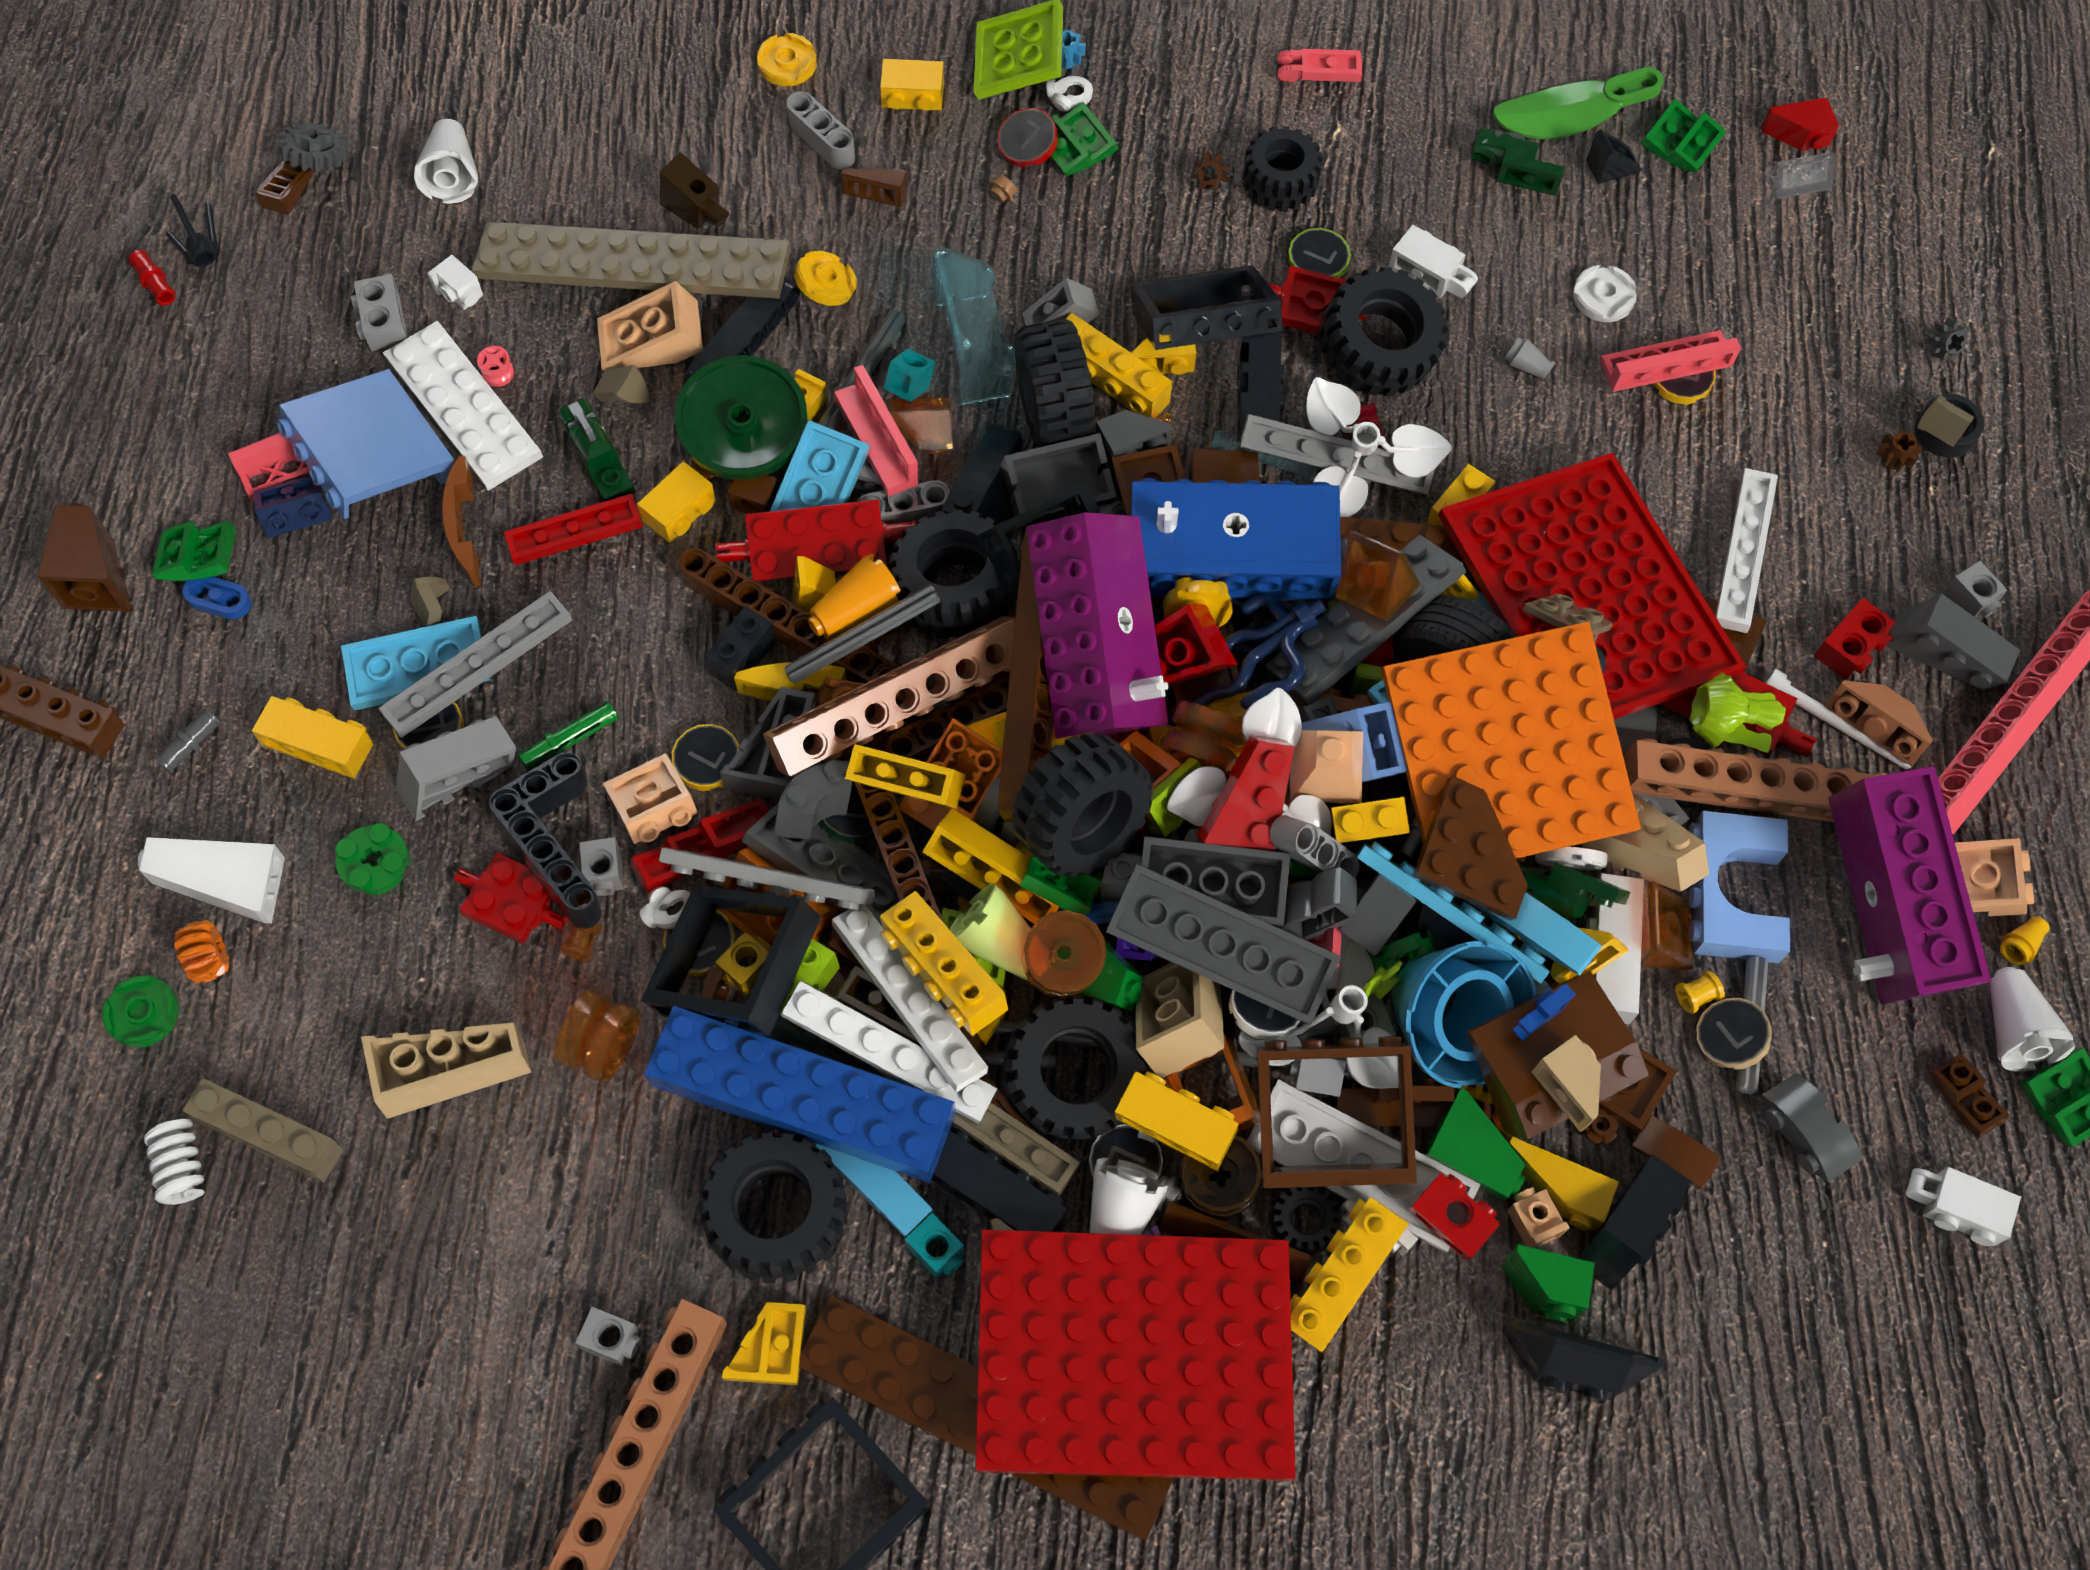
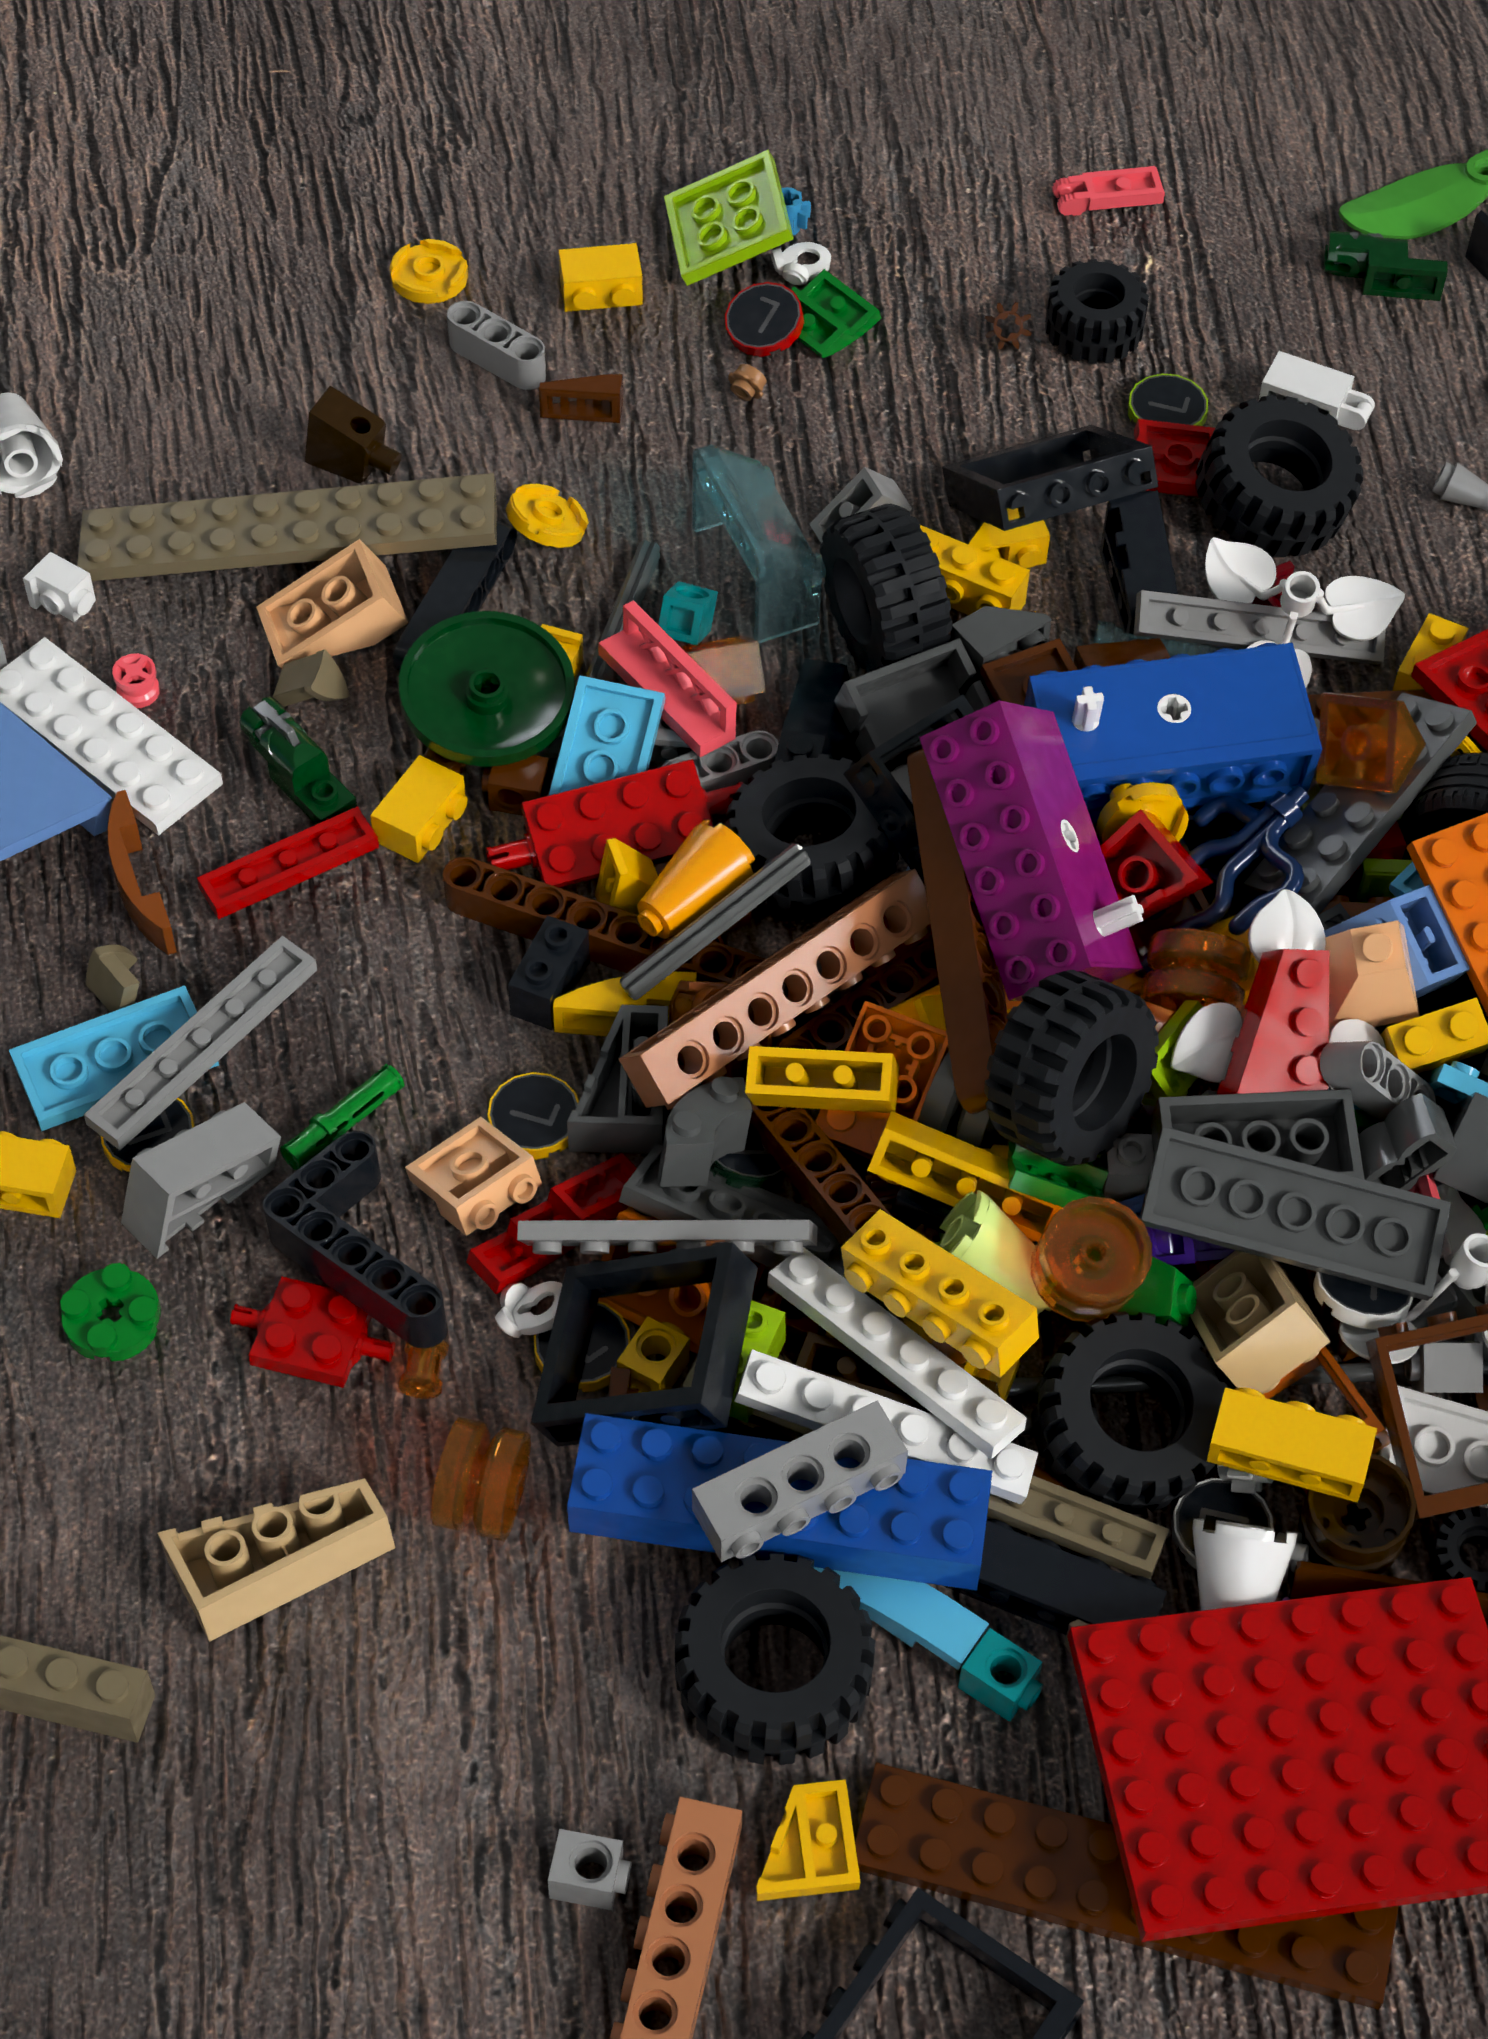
camera: 10 degrees left, 10 degrees down
(598, 853) = (432, 1252): light grey brick -> none
(786, 1083) = (813, 1457): none -> light grey brick

